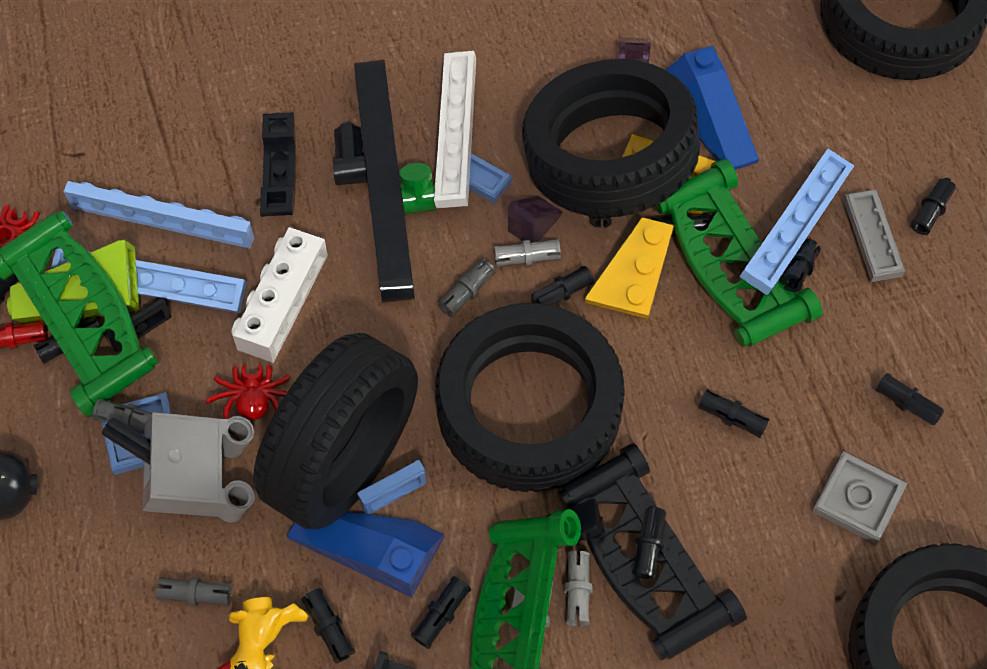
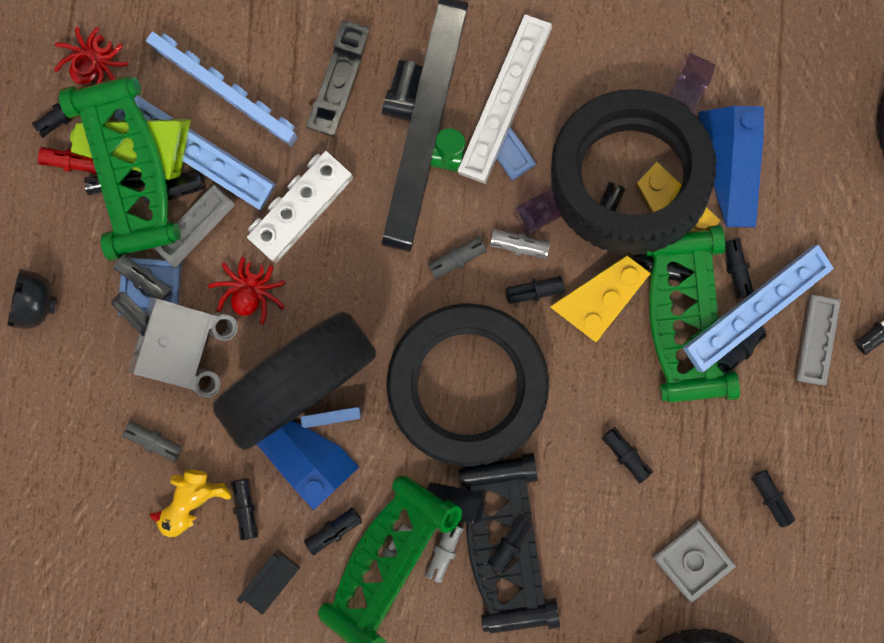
camera: 20 degrees right, 25 degrees up
(172, 350) = (197, 224): none -> light grey plate
(759, 198) = (738, 268): none -> black pin

